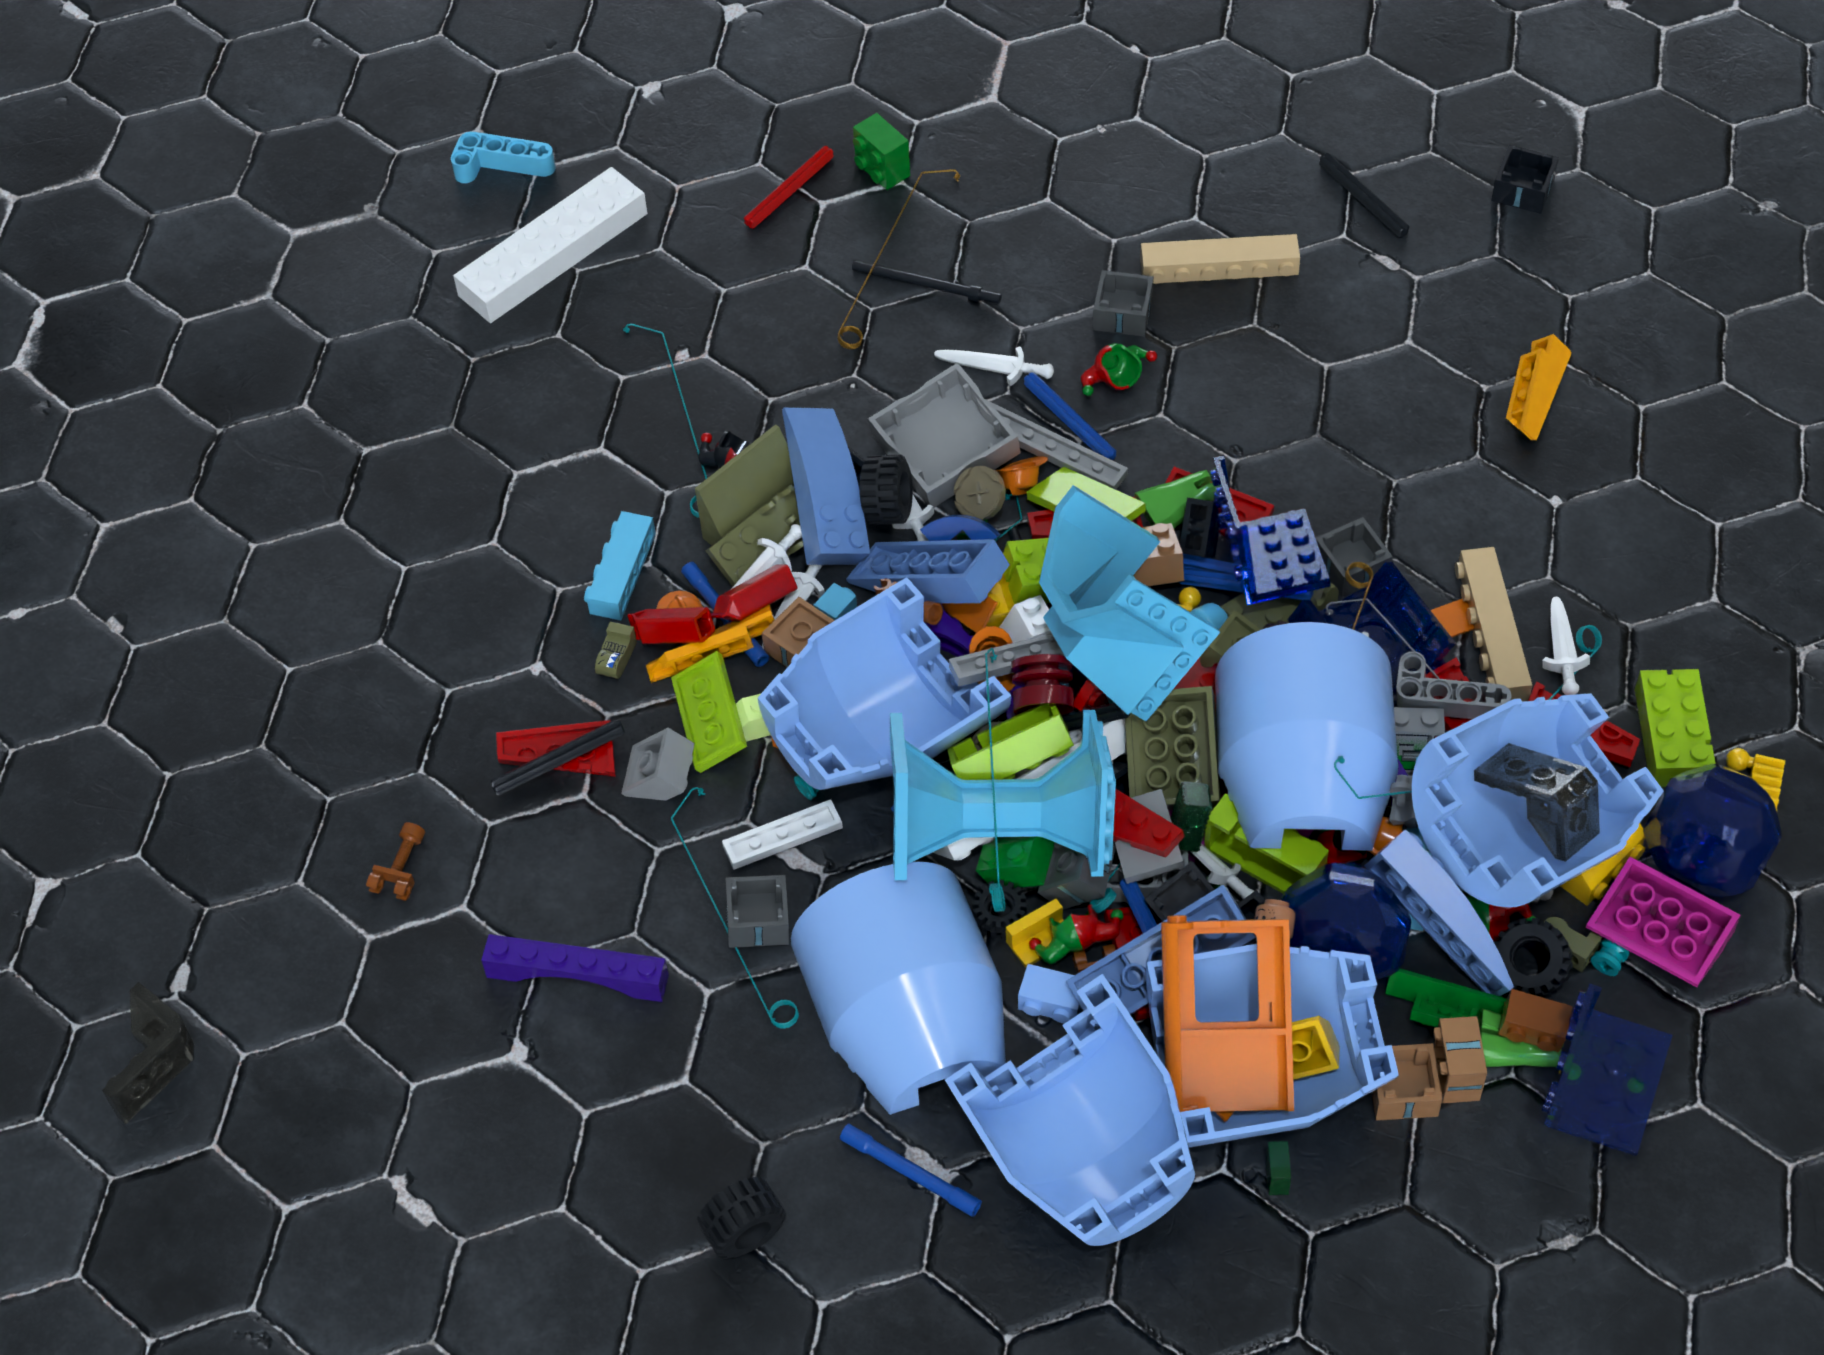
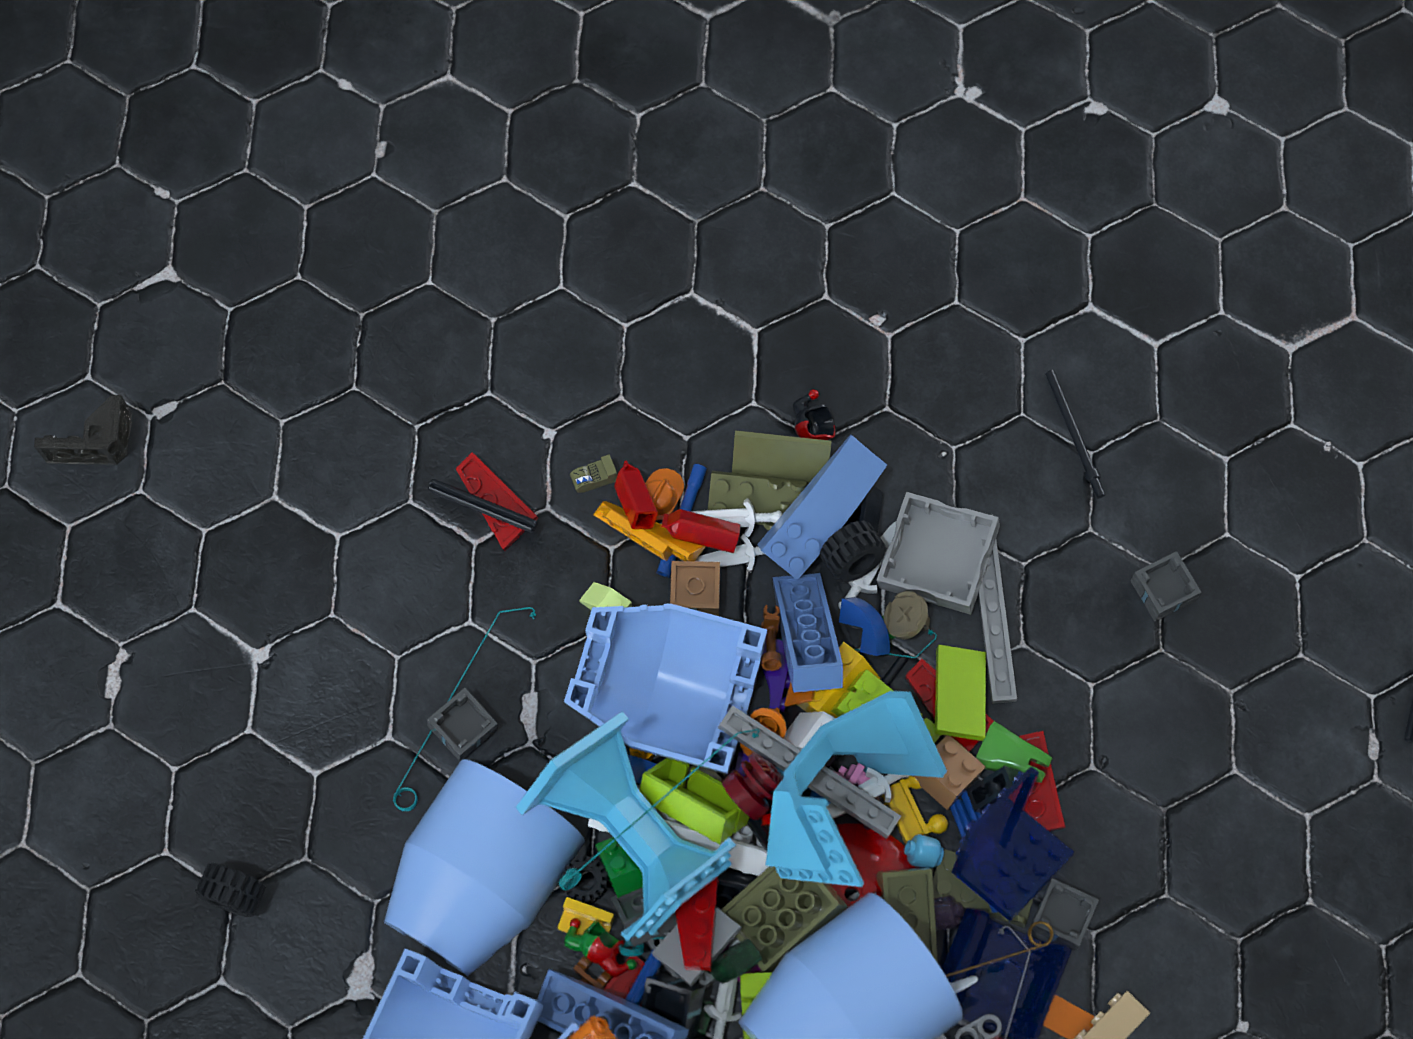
camera: 50 degrees right, 15 degrees up
(412, 835) = (315, 467): dark orange bar -> none
(500, 153) = (962, 86): medium azure beam -> none
(550, 244) = (895, 159): white brick -> none
(620, 565) = (665, 422): medium azure brick -> none
(625, 972) = (338, 643): dark purple arch -> none
(627, 330) = (764, 427): teal piece -> none
(658, 766) = (526, 575): light grey slope -> none
(709, 711) = (592, 573): lime tile -> none
(782, 834) = (533, 693): white plate -> none
(788, 187) = (1083, 273): red axle -> none
(836, 601) = (741, 589): medium azure brick -> none
(852, 328) = (992, 418): pearl gold piece -> none
(881, 151) = (1159, 313): green brick -> none
(954, 1195) = (352, 1008): blue piece -> none
(1009, 365) = (1042, 538): white sword -> none
(1022, 474) = (953, 627): orange piece -> none
(1047, 994) = (539, 956): light blue brick -> none
(1069, 416) = (1034, 624): blue axle -> none
(1116, 366) = (1102, 624): green piece -> none
(1221, 258) = (1266, 625): tan brick -> none
(1537, 384) = (1339, 940): light orange wedge -> none

